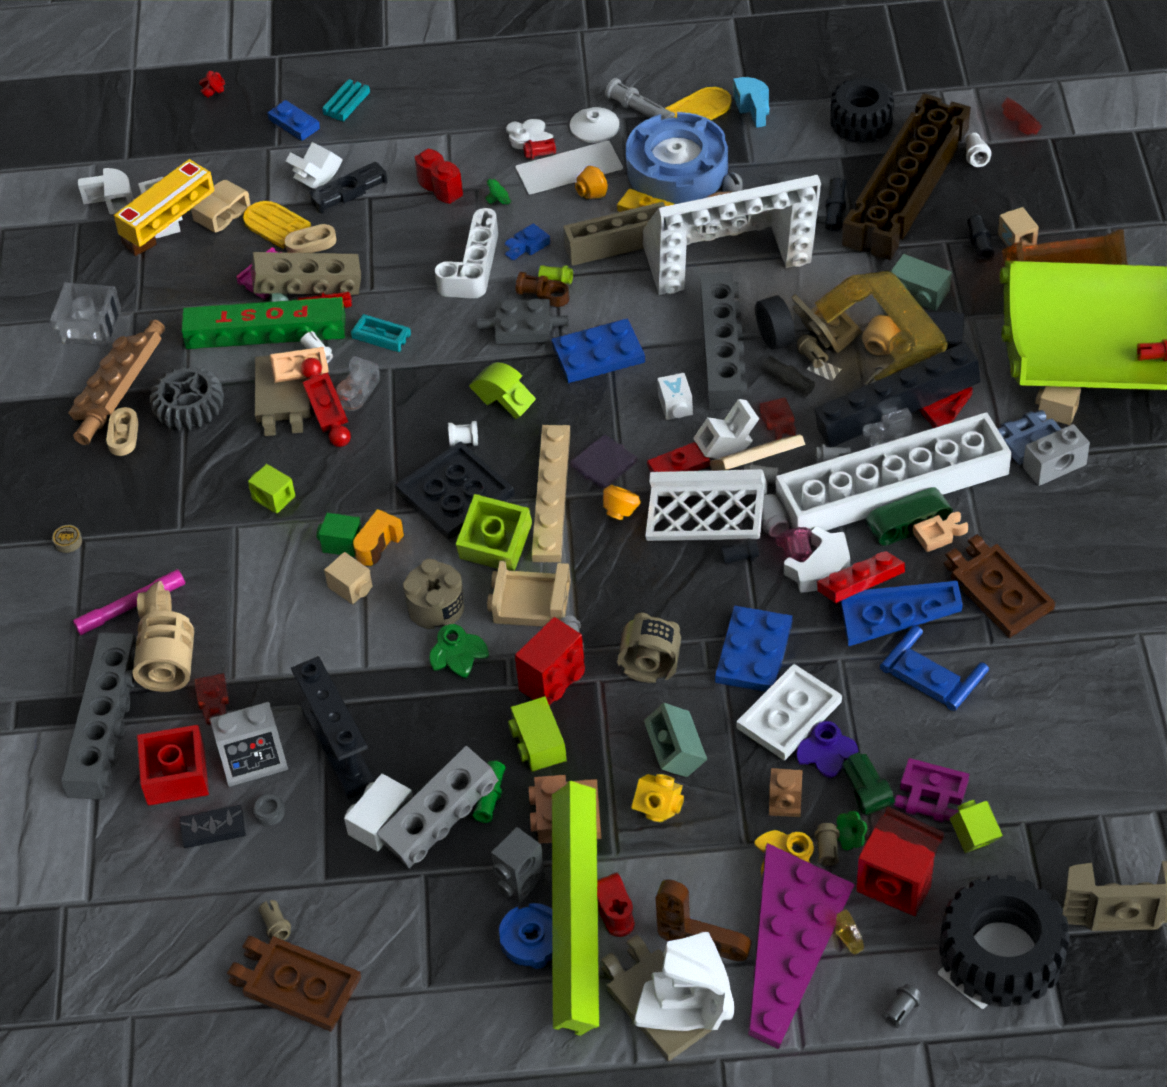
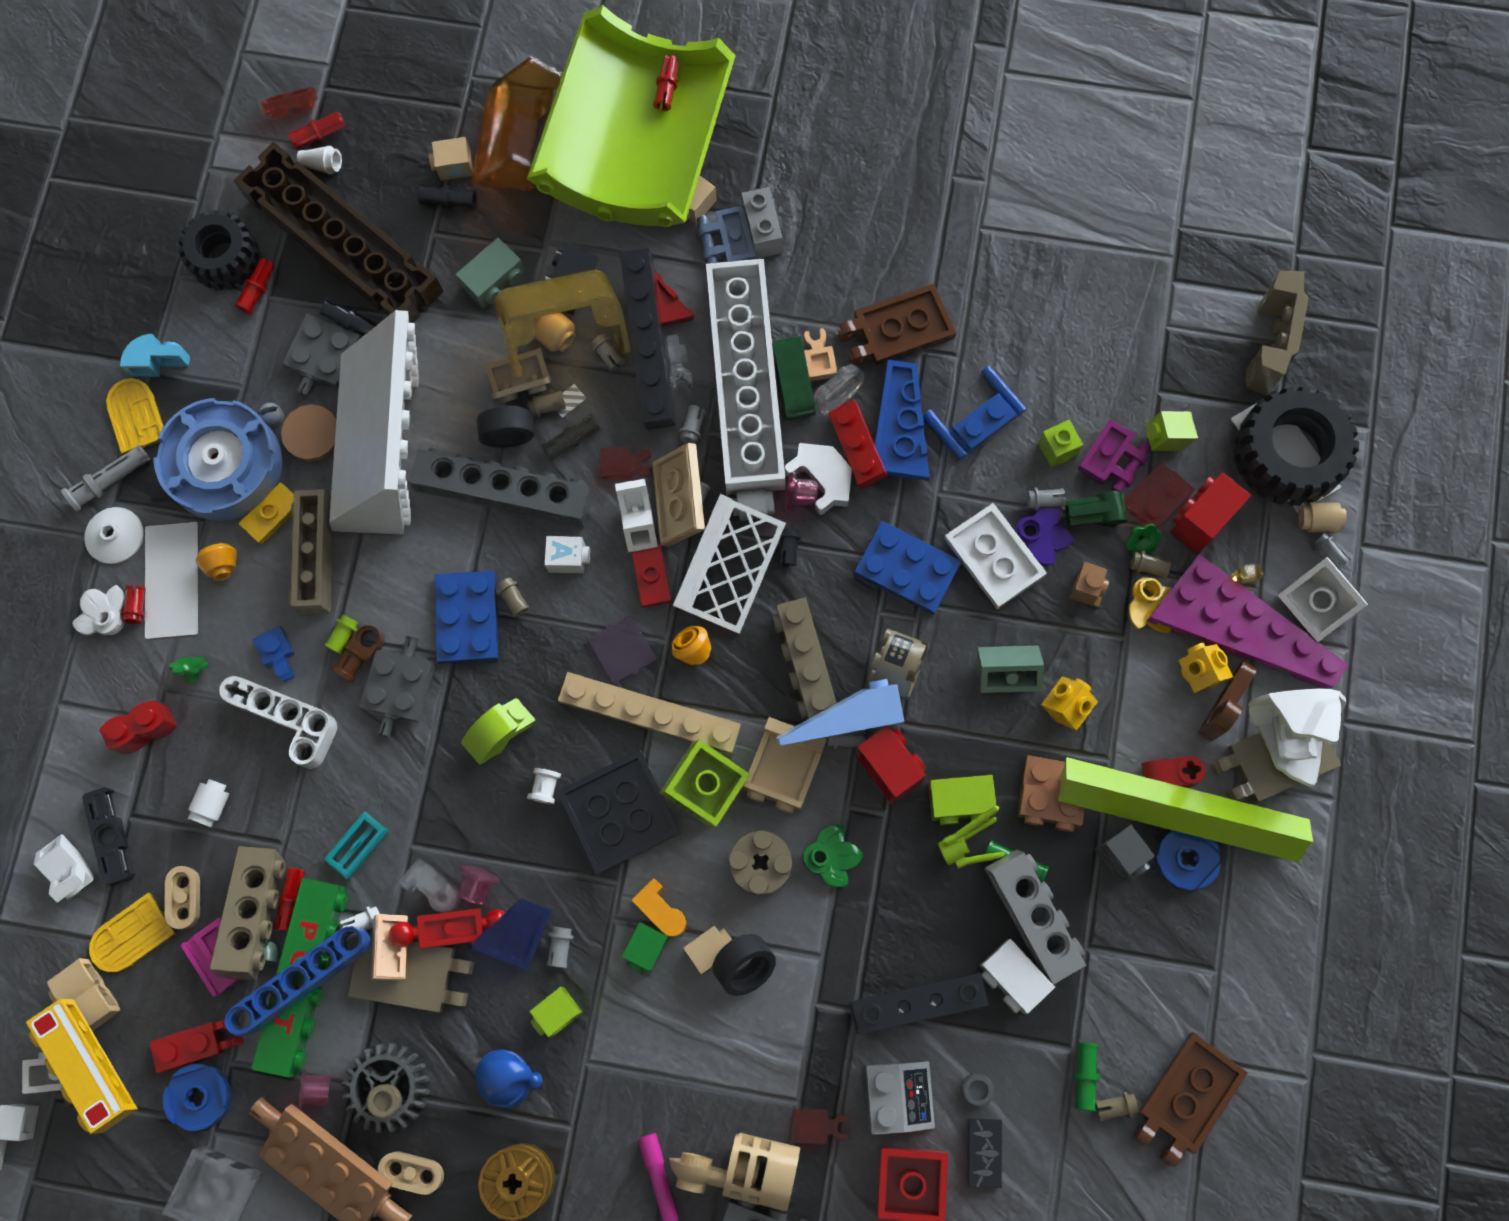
camera: 75 degrees left, 25 degrees up
(126, 492) = (531, 1167): none -> pearl gold wheel
(153, 302) = (214, 1105): none -> blue plate
(174, 389) = (384, 1101): none -> dark tan tile
(175, 352) = (313, 1090): none -> clear pink piece
(197, 279) = (191, 1046): none -> red hinge
(209, 469) = (505, 1079): none -> blue piece
(257, 310) = (283, 986): none -> blue beam
(298, 889) = (1086, 1076): none -> green pin
(327, 479) = (559, 946): none -> light grey pin
(329, 445) = (514, 934): none -> clear blue wing
(355, 593) = (734, 955): none -> black tyre
(367, 410) = (476, 884): none -> clear pink piece
(389, 233) = (208, 802): none -> white brick
(487, 736) = (955, 847): none -> lime plant
(589, 611) = (862, 710): none -> light blue wedge
(630, 368) = (512, 597): none -> dark tan pin
(631, 586) = (806, 657): none -> dark tan brick
(731, 905) = (1205, 667): none -> yellow brick
(839, 999) = (1322, 599): none -> white slope
(842, 143) = (255, 286): none -> red axle
(861, 734) = (1045, 498): none -> light grey pin
(913, 551) = (838, 388): none -> clear plate
(925, 736) = (1060, 443): none -> lime brick
(936, 988) = (1322, 517): none -> tan brick
(1003, 140) = (317, 130): none -> red axle

